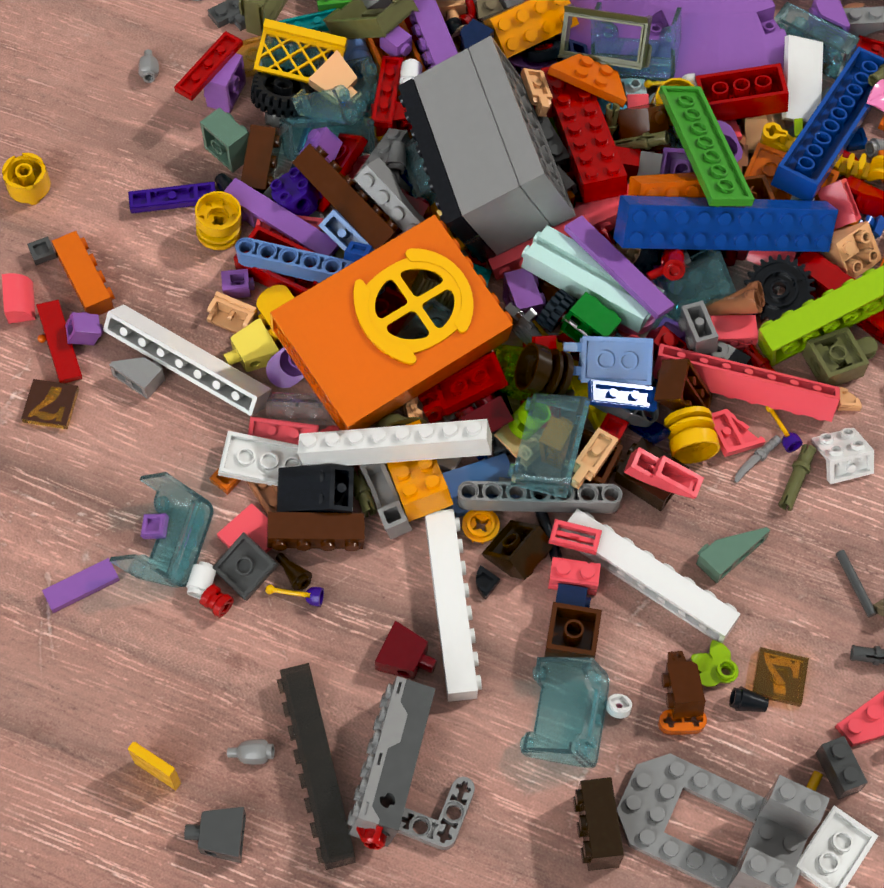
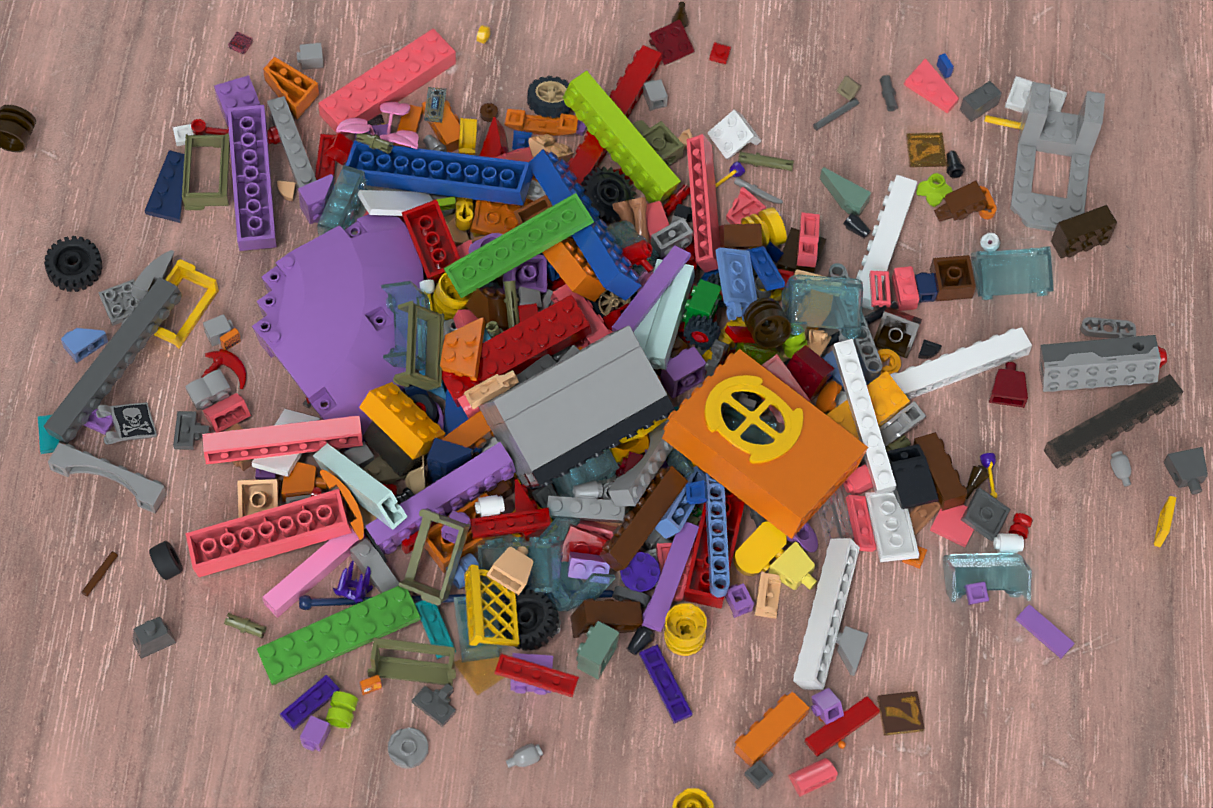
camera: 110 degrees left, 0 degrees up
(681, 551) = (856, 225): none -> black cone

